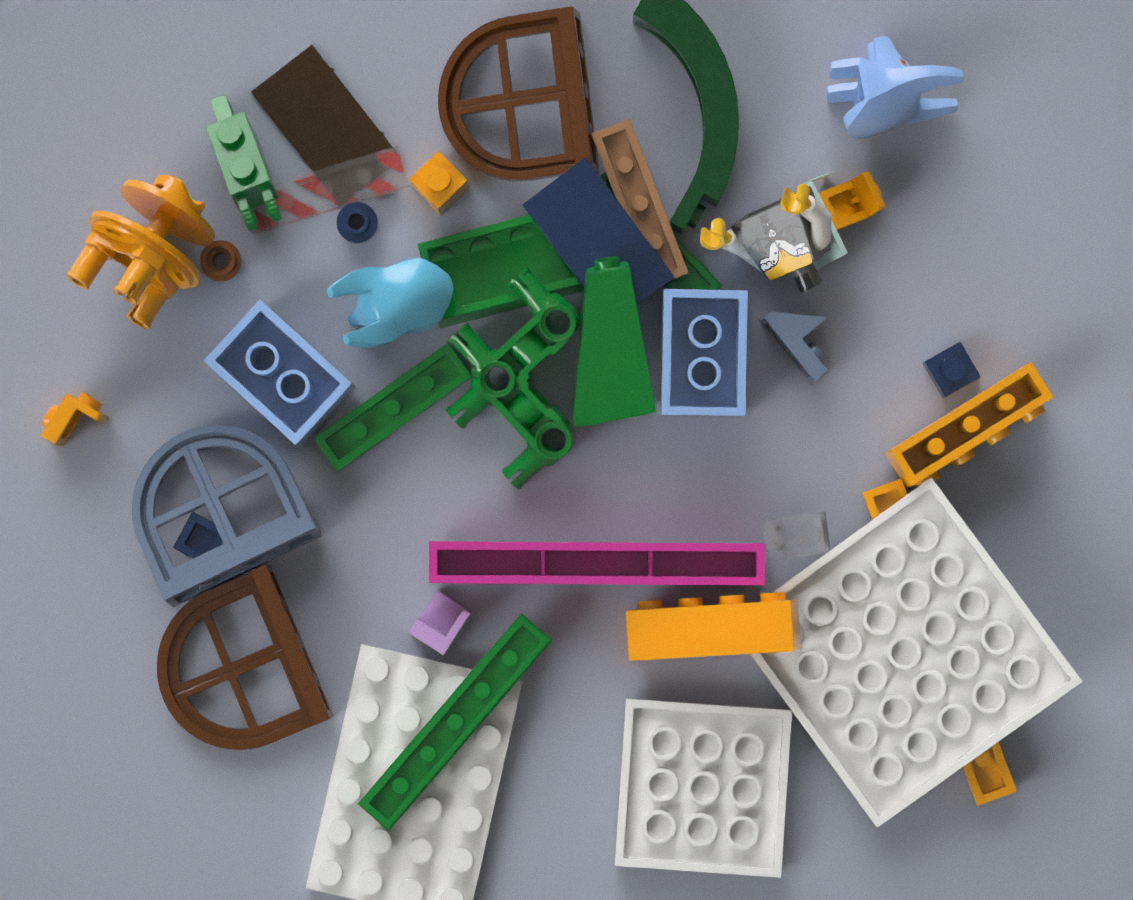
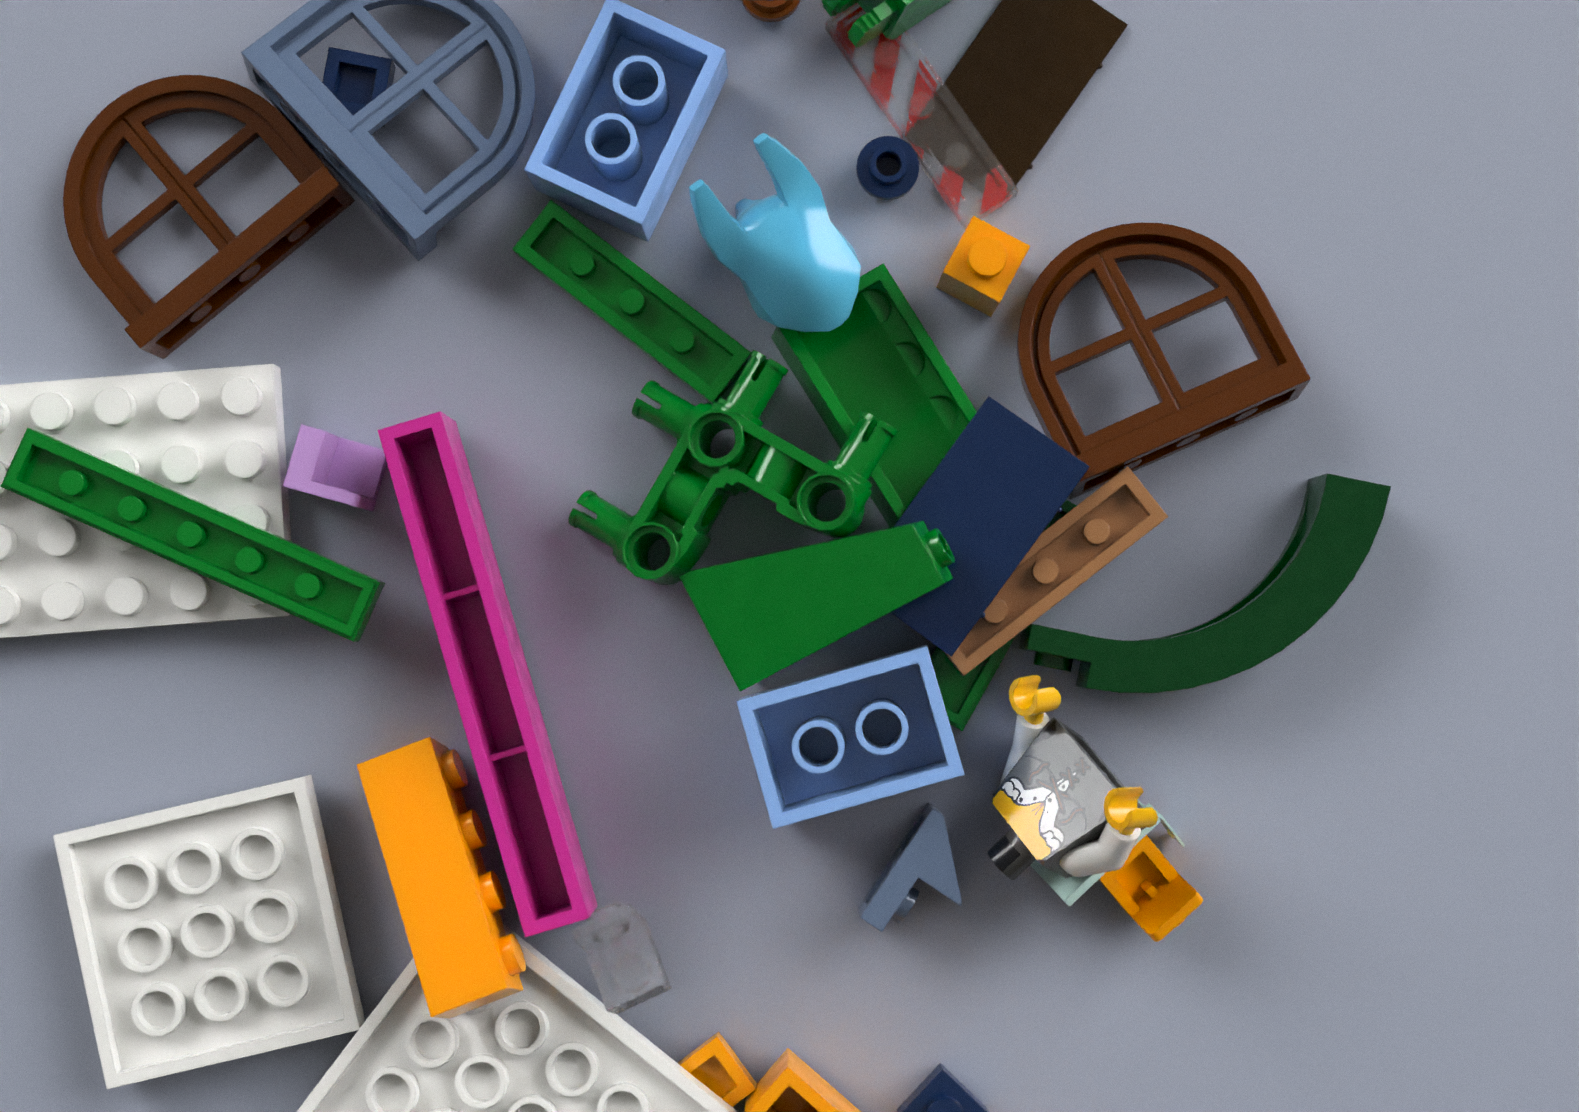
camera: 70 degrees right, 0 degrees up
(889, 90) = (1335, 894): light blue piece -> none

